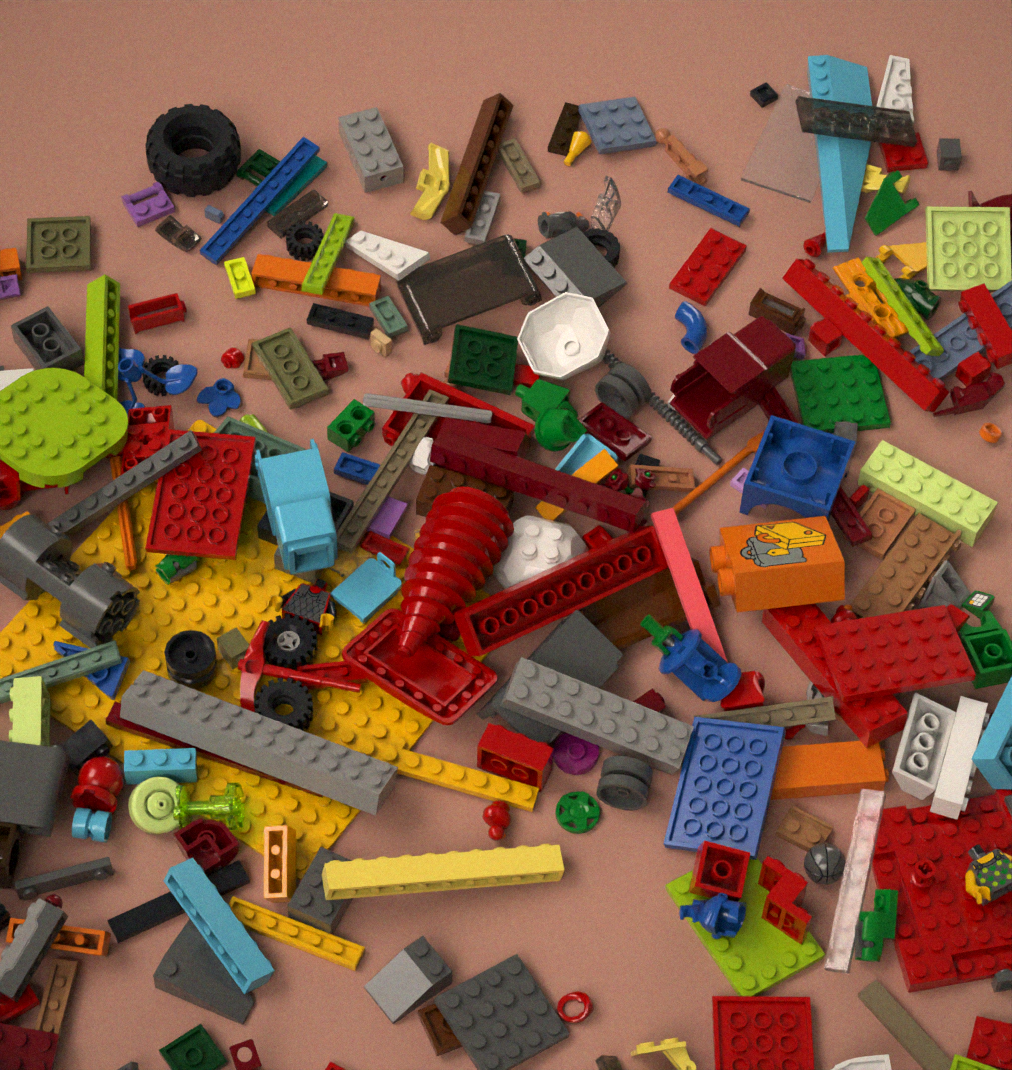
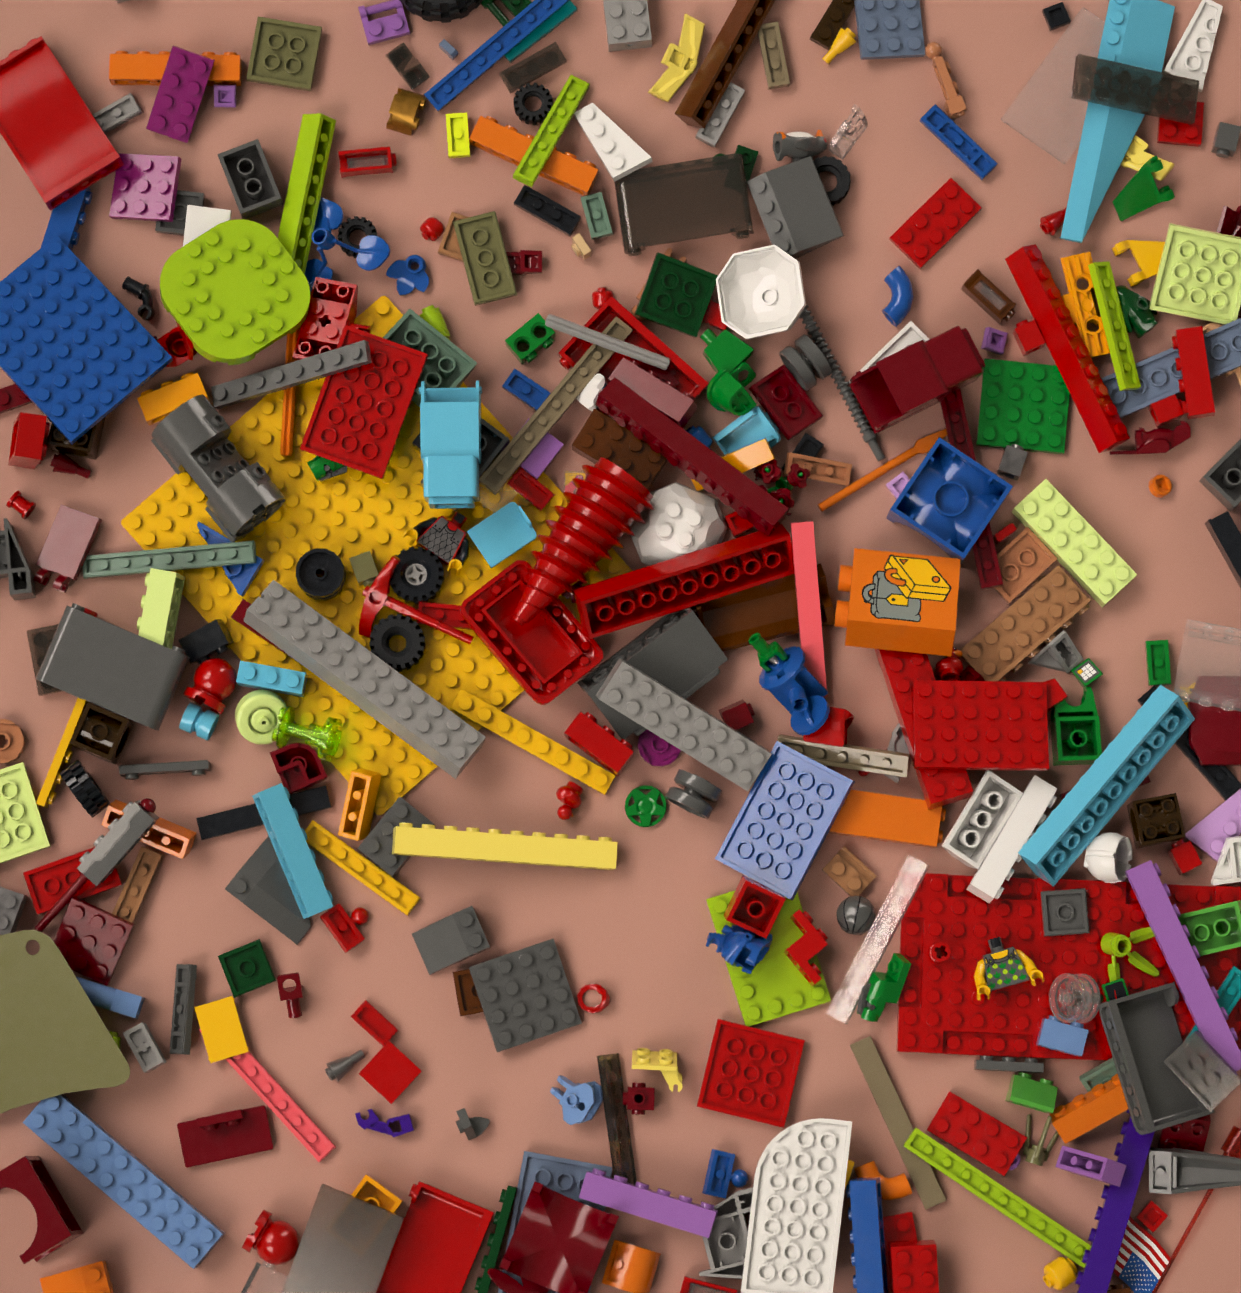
camera: 15 degrees right, 25 degrees up
(184, 269) = (404, 111): none -> pearl gold cylinder
(289, 993) = (344, 927): none -> red plate

